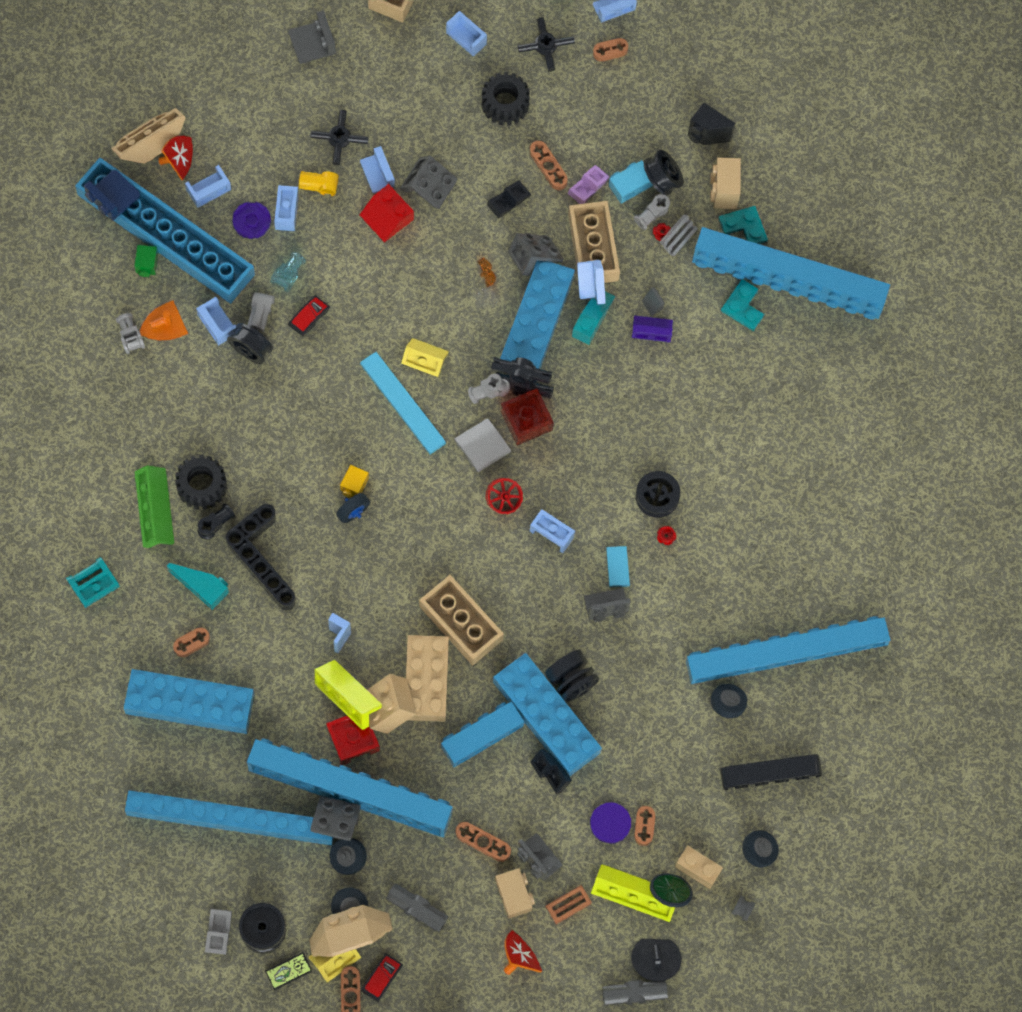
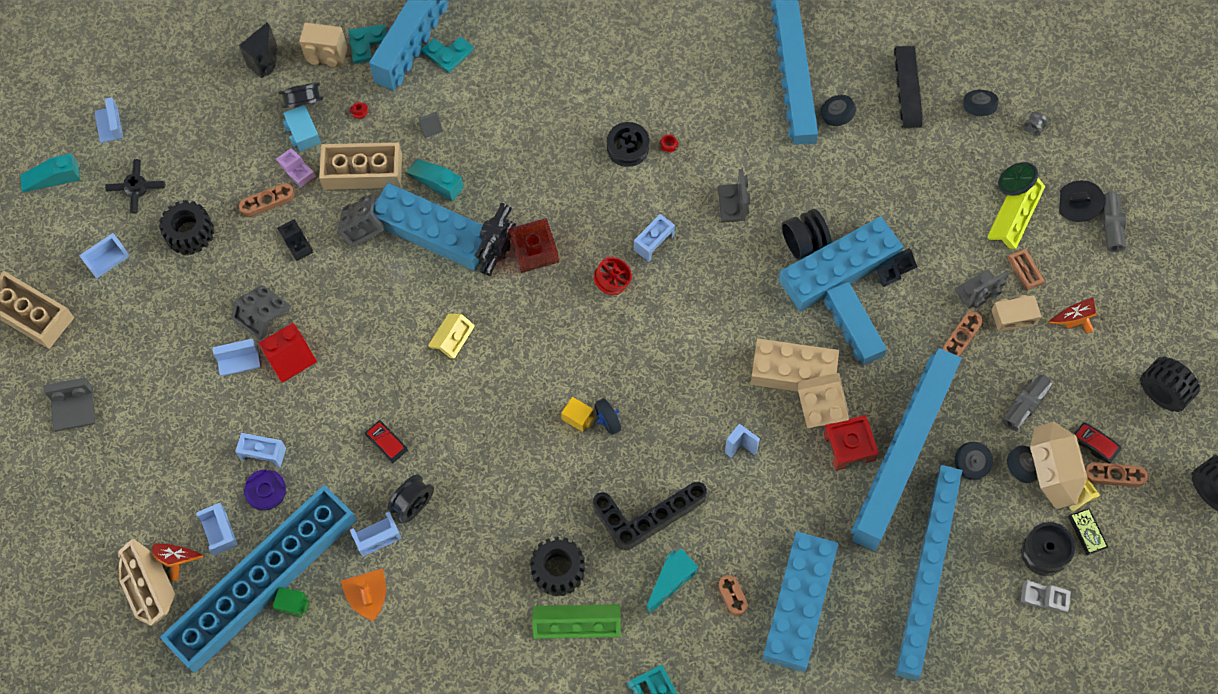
camera: 75 degrees left, 5 degrees down
(112, 194) = (210, 624): dark blue bracket -> none
(130, 335) = (374, 627): light grey connector -> none
(215, 522) = (602, 557): black connector -> none
(260, 308) = (370, 488): light grey piece -> none
(287, 273) = (334, 457): clear light blue connector -> none
(323, 183) = (238, 412): yellow piece -> none
(335, 818) = (939, 464): dark grey bracket -> none
(339, 143) = (192, 395): black bar -> none
(346, 693) = (809, 438): neon yellow panel -> none
(403, 403) = (496, 361): medium azure tile -> none
(461, 620) = (738, 327): tan brick -> none
(482, 445) = (554, 291): light grey slope -> none
(488, 274) = (377, 265): clear orange piece -> none
(489, 388) = (498, 277): light grey connector -> none
(591, 280) = (404, 165): light blue panel -> none
(610, 49) = (159, 130): nougat beam -> none
(610, 823) = (948, 224): dark purple tile -> none
(617, 566) = (694, 188): medium azure tile -> none
(649, 826) = (952, 196): nougat beam -> none
(652, 328) = (457, 130): dark purple panel -> none
(653, 211) = (336, 113): light grey connector -> none
(681, 237) = (366, 95): light grey tile -> none
(698, 867) = (996, 153): tan brick -> none

